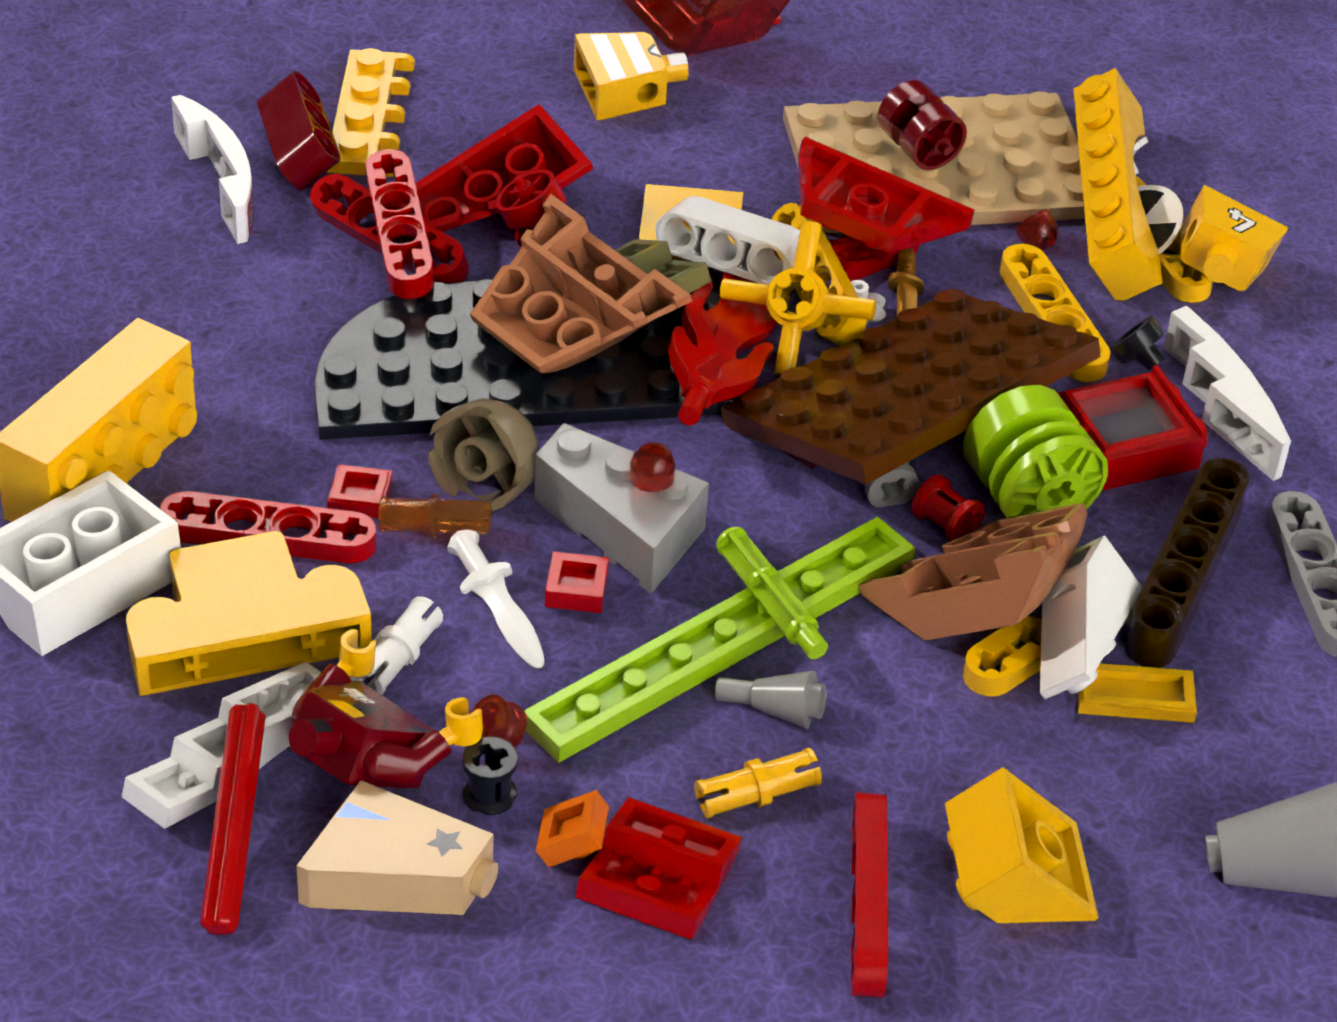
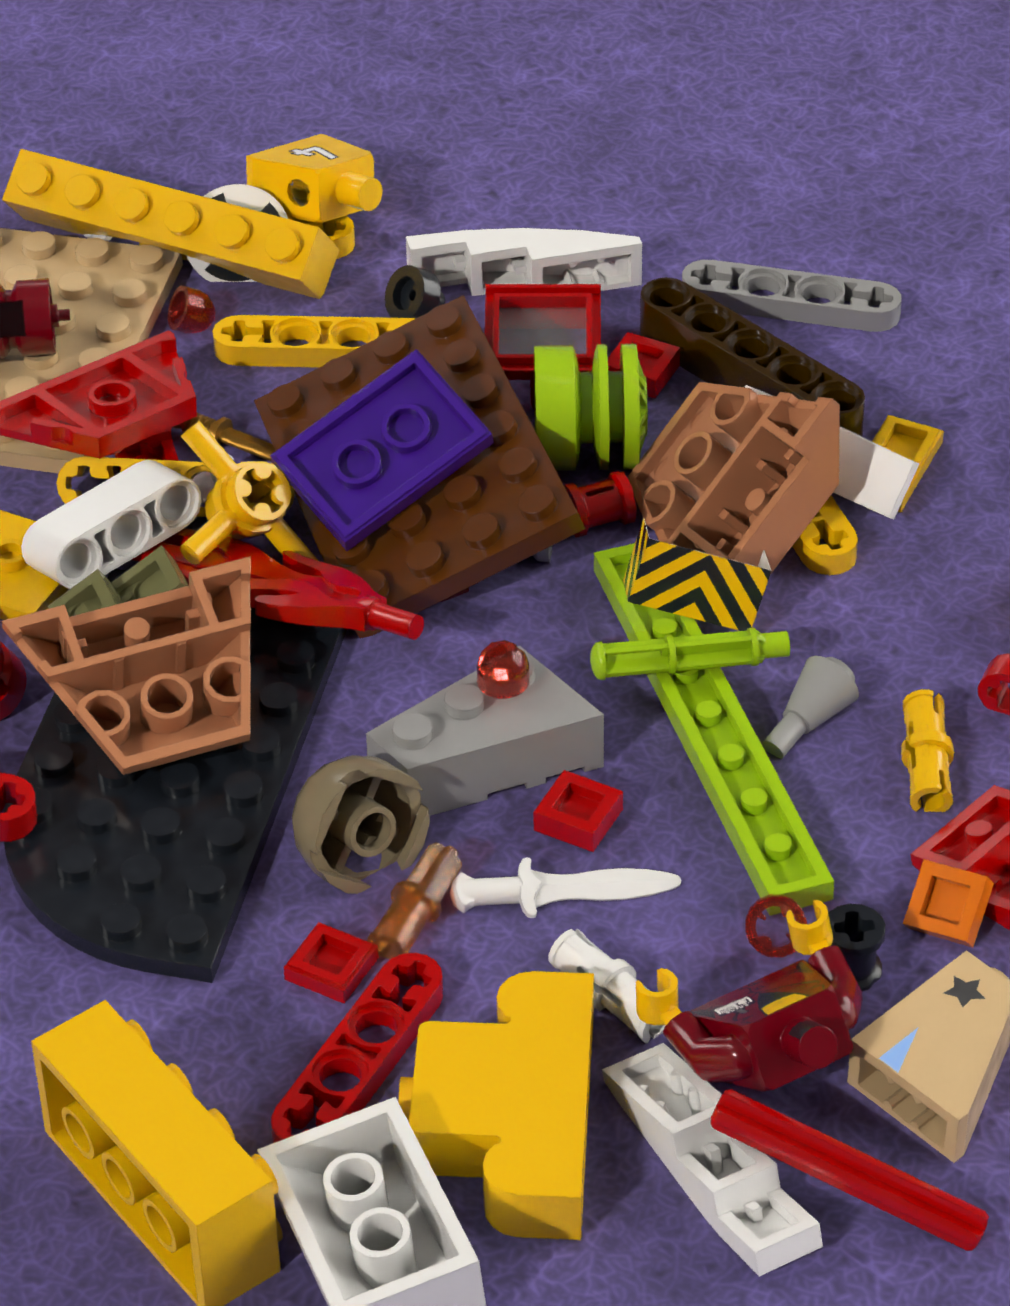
camera: 65 degrees left, 0 degrees up
(849, 580) = (695, 583): none -> sticker
(873, 339) = (382, 449): none -> dark purple tile
(1148, 496) = (656, 359): none -> red plate

